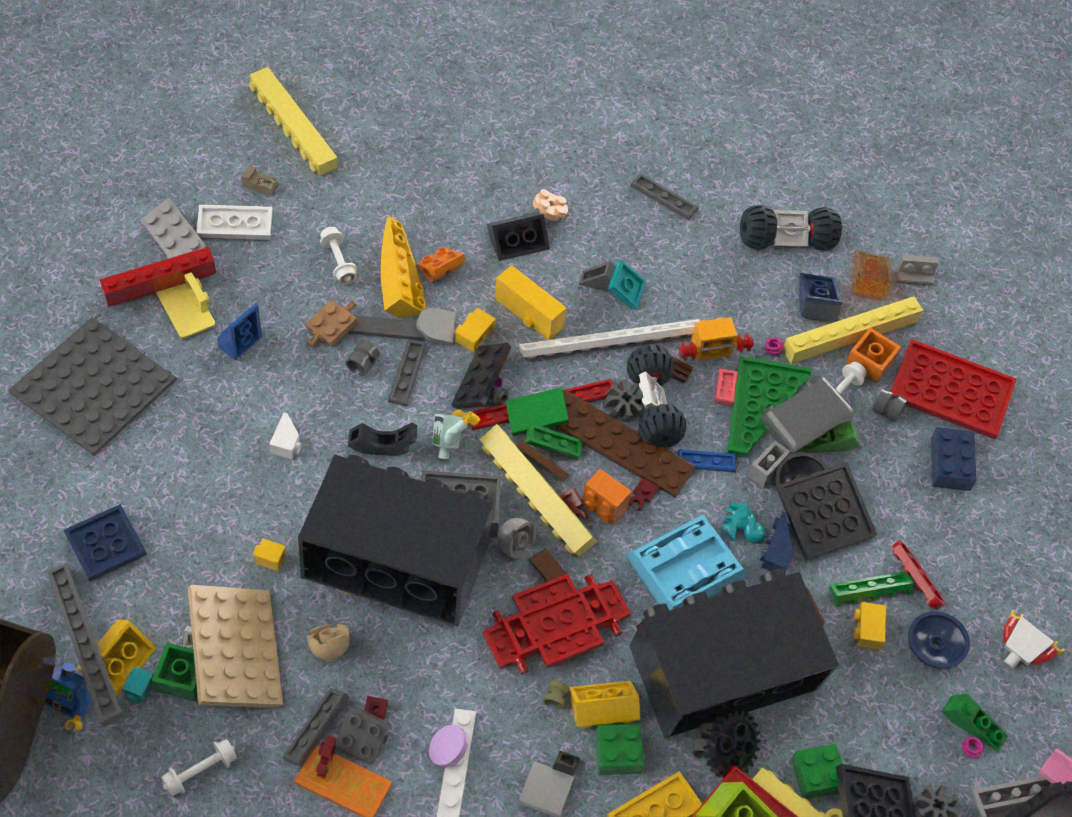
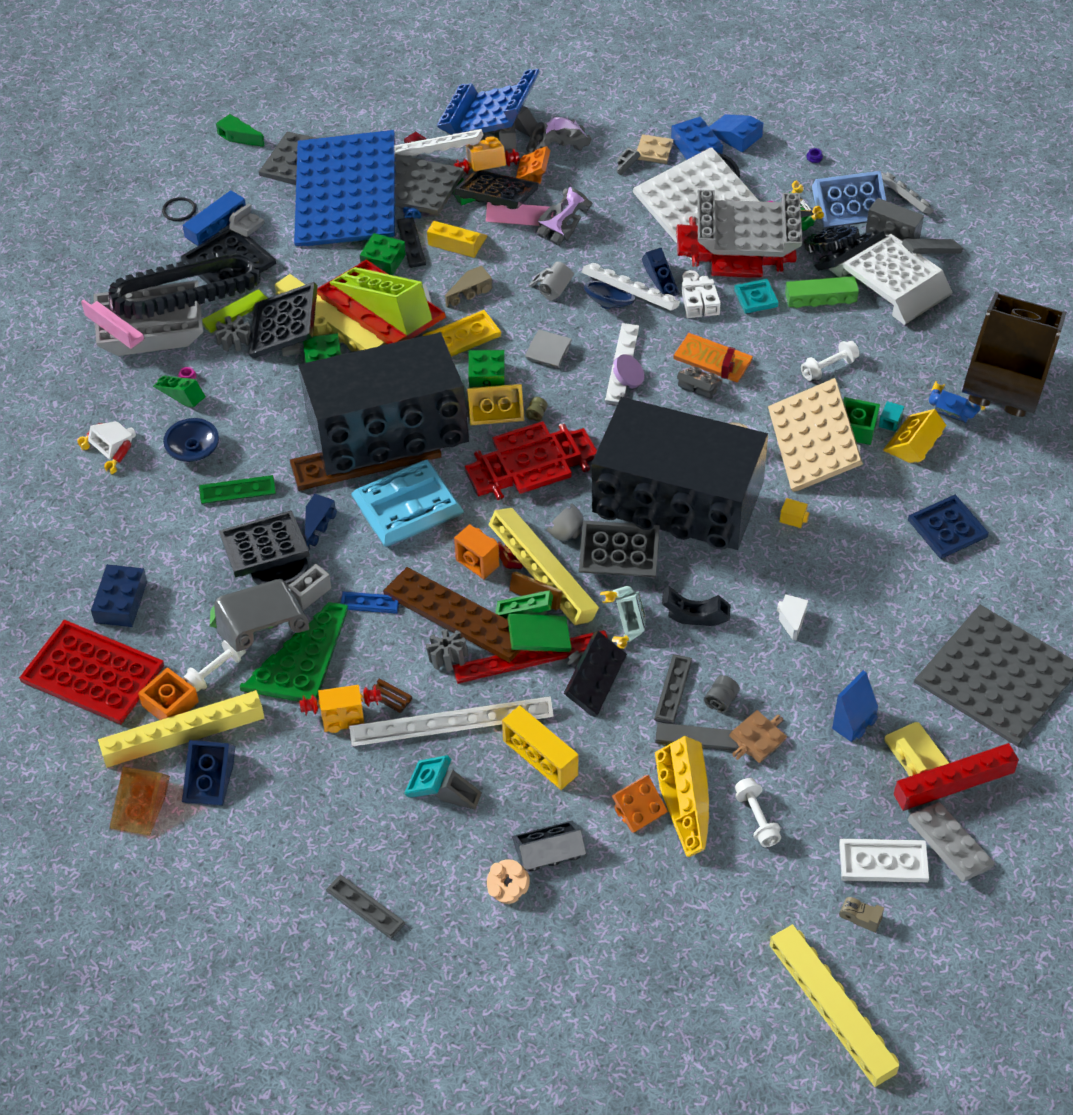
camera: 170 degrees left, 5 degrees down
(85, 645) = (944, 428): dark grey plate -> none
(315, 727) = (738, 391): dark grey tile -> none
(376, 706) = (689, 402): dark red tile -> none
(437, 325) = (643, 735): light grey tile -> none
(475, 329) = (601, 727): yellow brick -> none
(547, 565) = (535, 507): reddish brown tile -> none
(566, 763) = (531, 365): black tile -> none
(644, 492) = (439, 572): dark red plate -> none
(661, 422) = (415, 675): black plate -> none
(726, 387) = (335, 671): coral plate -> none
(744, 520) = (346, 544): teal animal -> none
(774, 342) = (274, 711): dark pink plate -> none
(790, 228) = (258, 840): black plate -> none
(870, 625) = (248, 456): yellow brick -> none
(889, 404) = (165, 648): dark grey wheel -> none
(917, 269) = (83, 802): light grey bracket -> none
(922, 581) = (190, 498): red plate -> none

